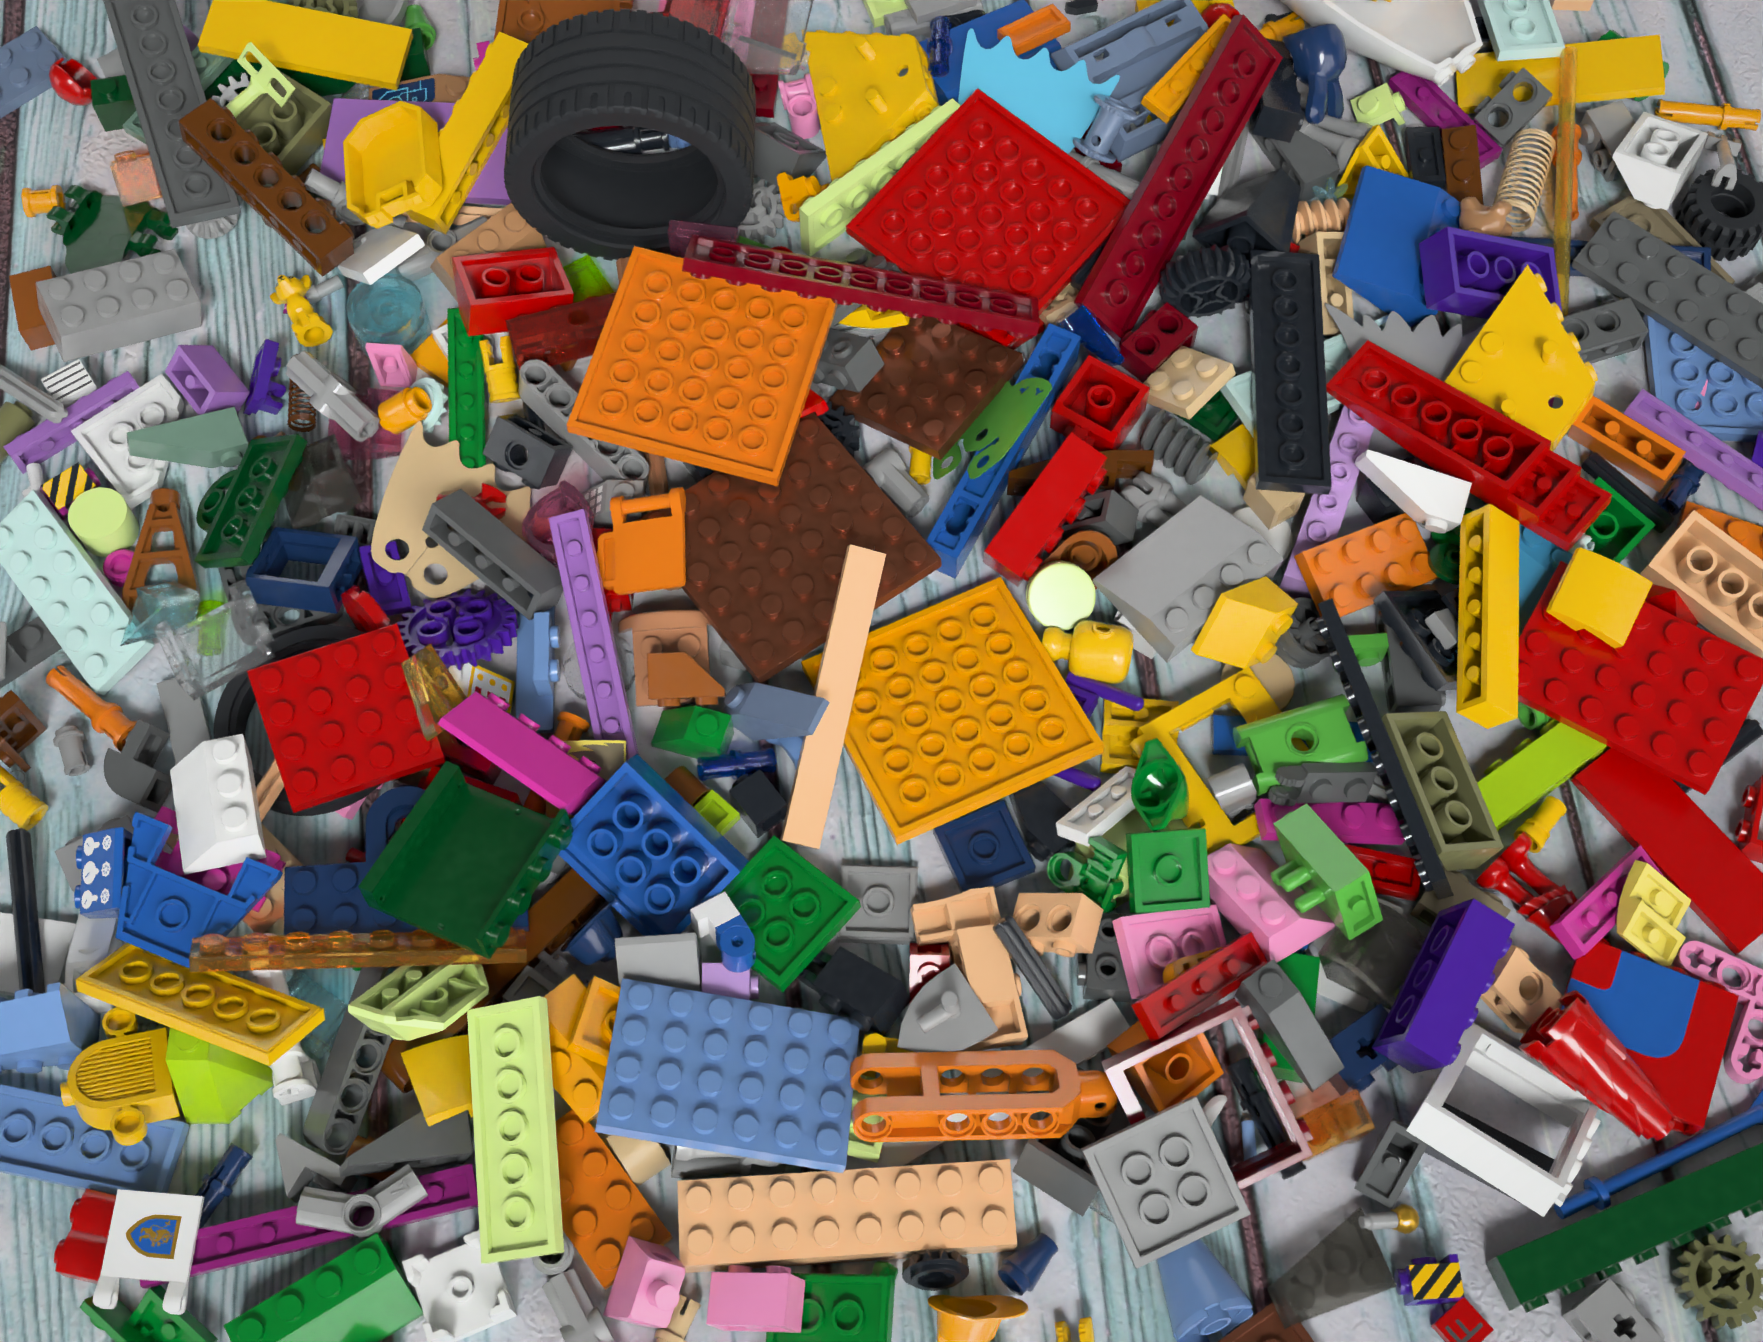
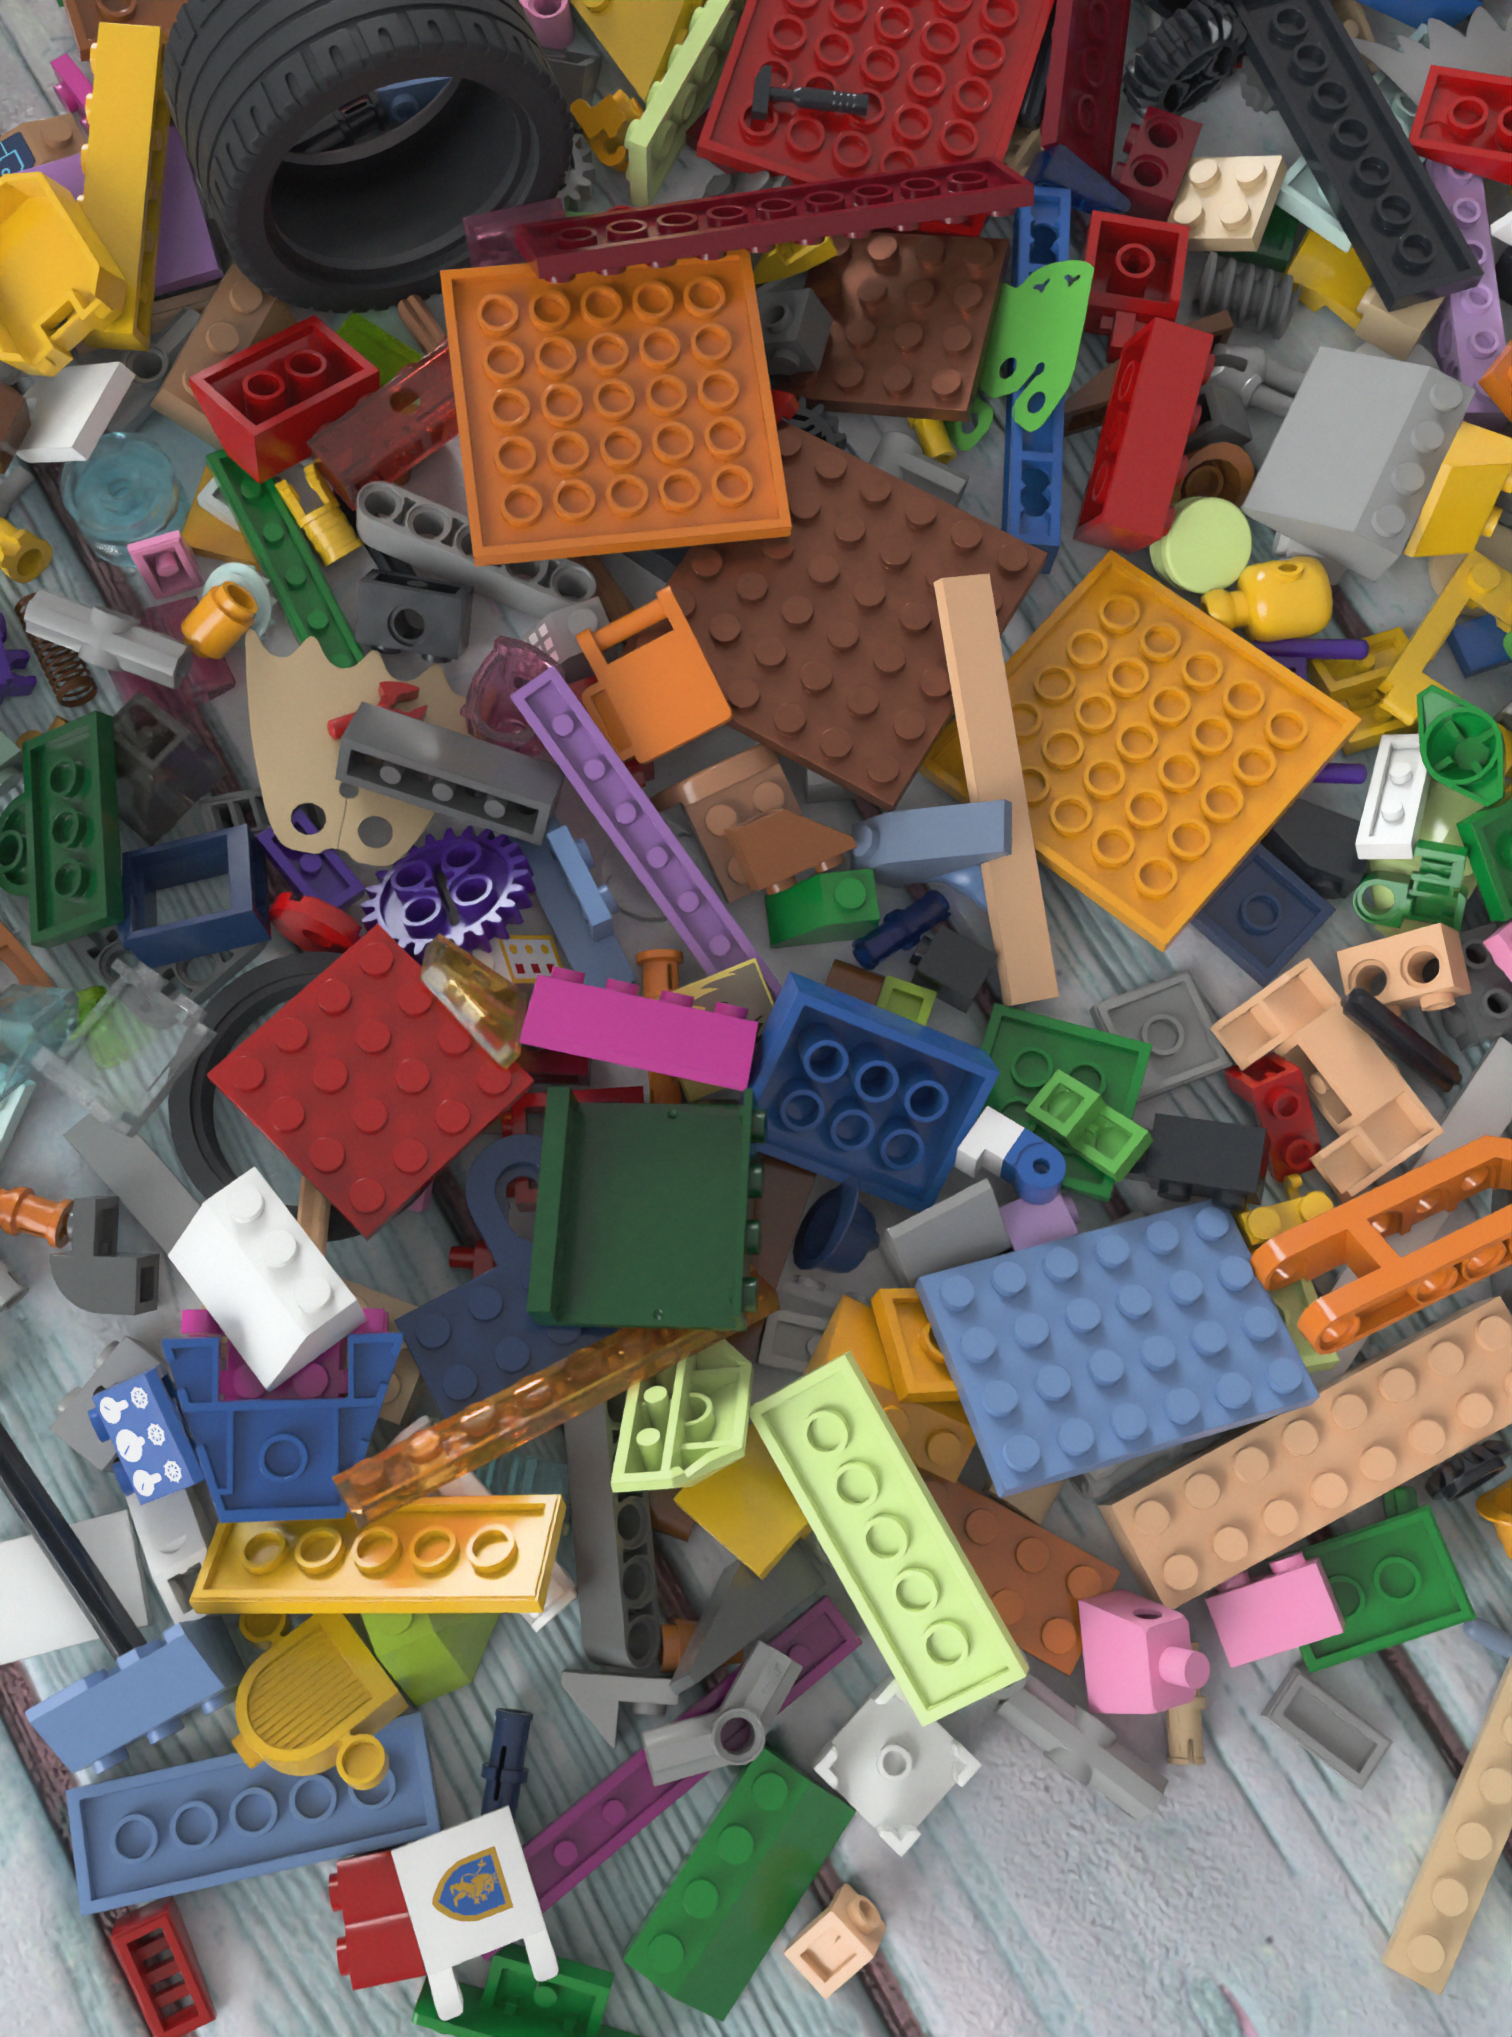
camera: 30 degrees left, 10 degrees up
(788, 933) = (1088, 1125): none -> bright green slope
(927, 219) = (804, 98): none -> black piece
(945, 1016) = (1337, 1149): light grey shield -> none

